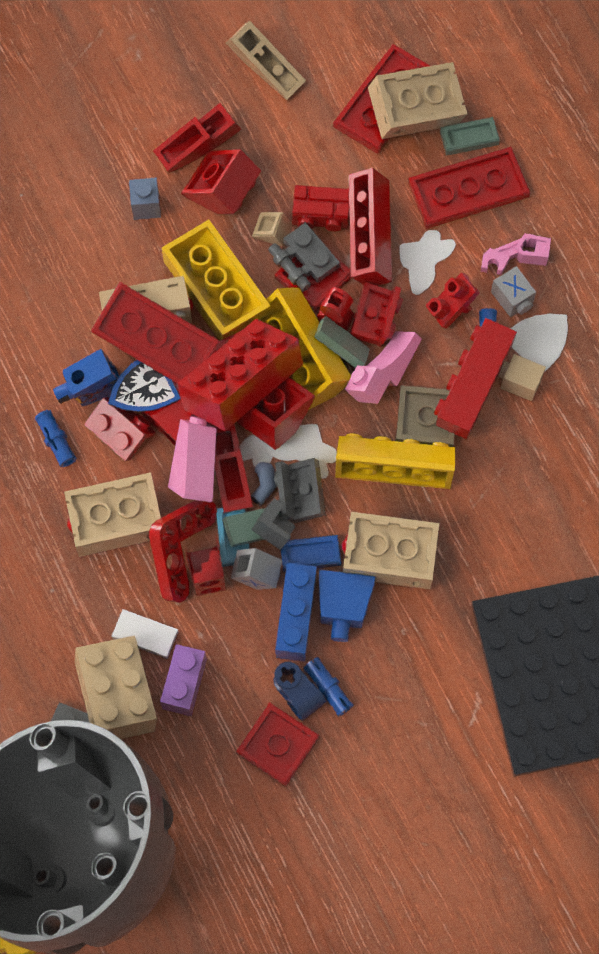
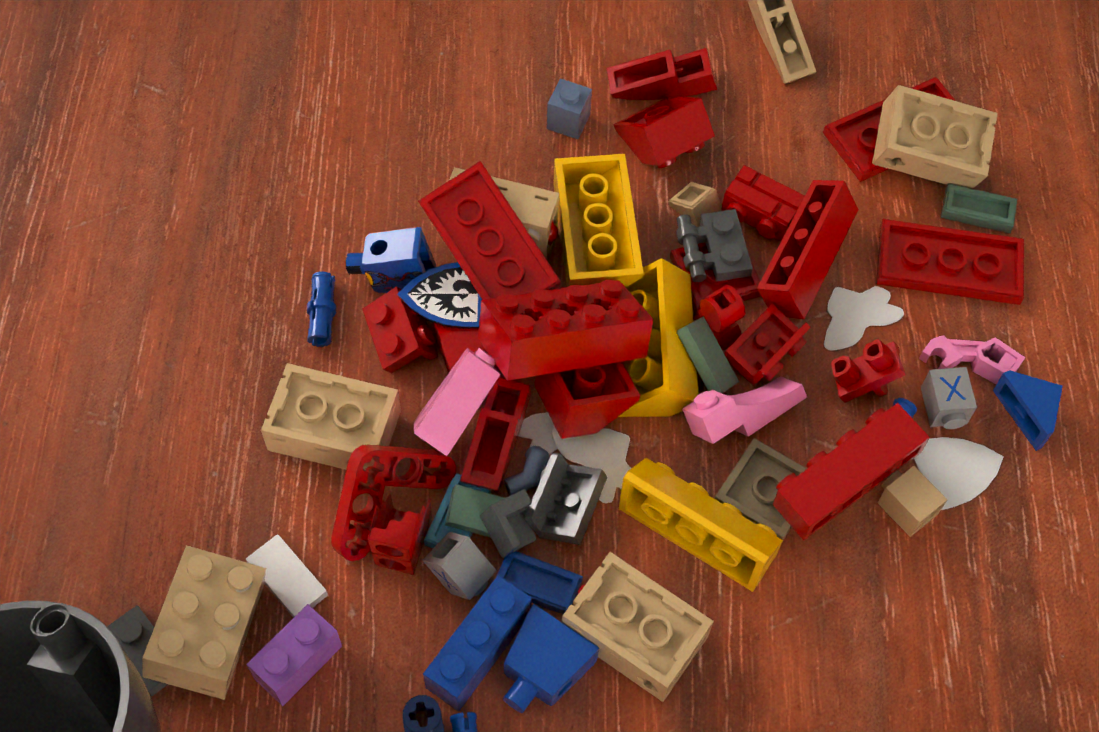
camera: 25 degrees right, 10 degrees down
(569, 270) = (1031, 404): none -> blue slope

